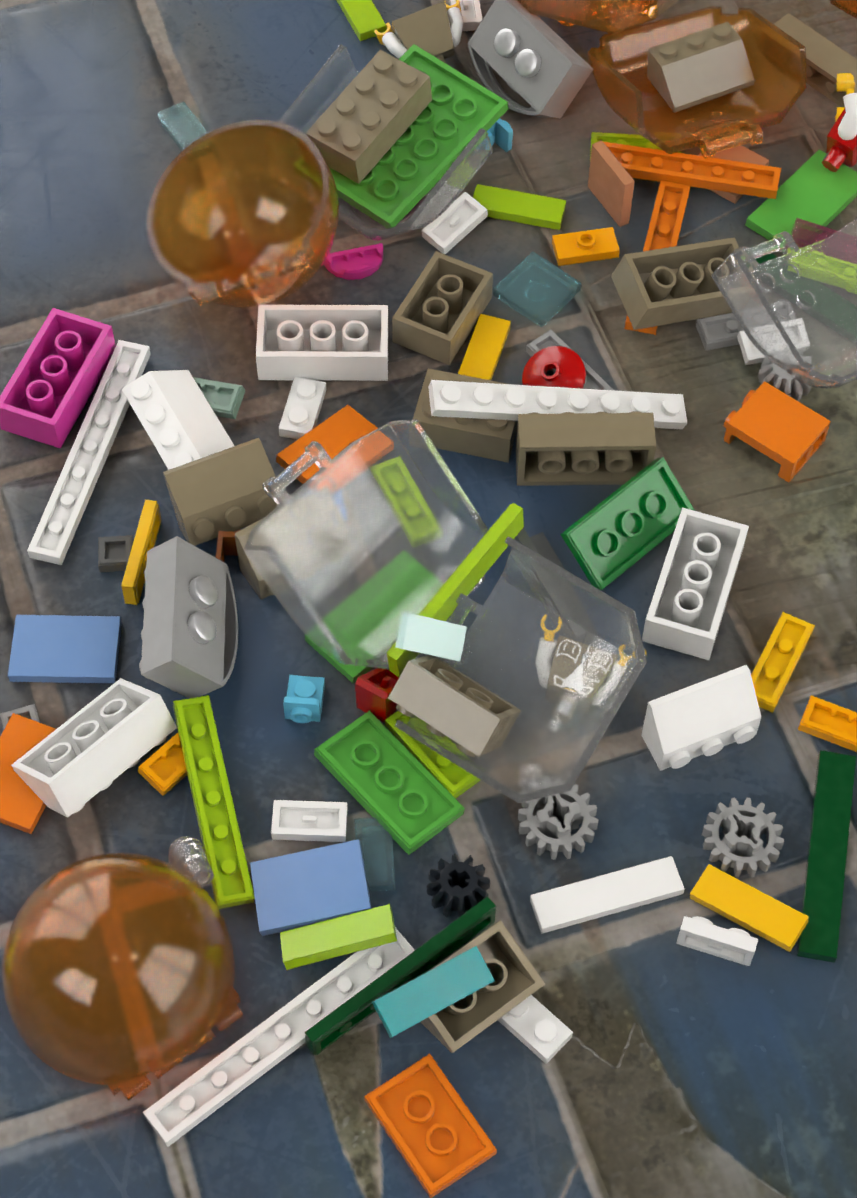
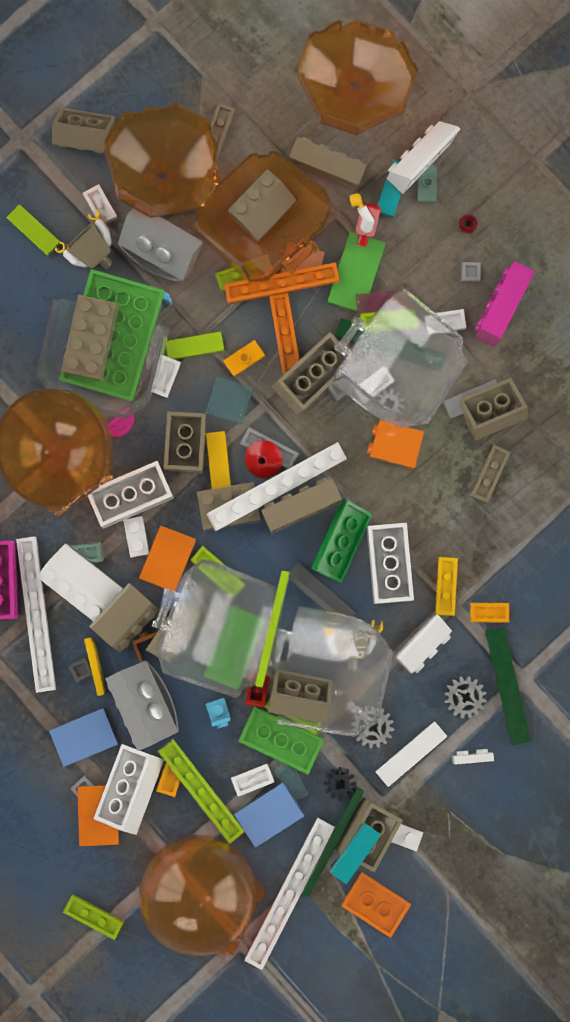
camera: 25 degrees left, 25 degrees up
(190, 857) = (206, 828): clear cone -> none
(338, 936) = (294, 835): lime tile -> none
(430, 636) = (273, 667): light aqua tile -> none
(610, 183) = (243, 315): nougat tile -> none
(749, 907) = (481, 733): yellow tile -> none

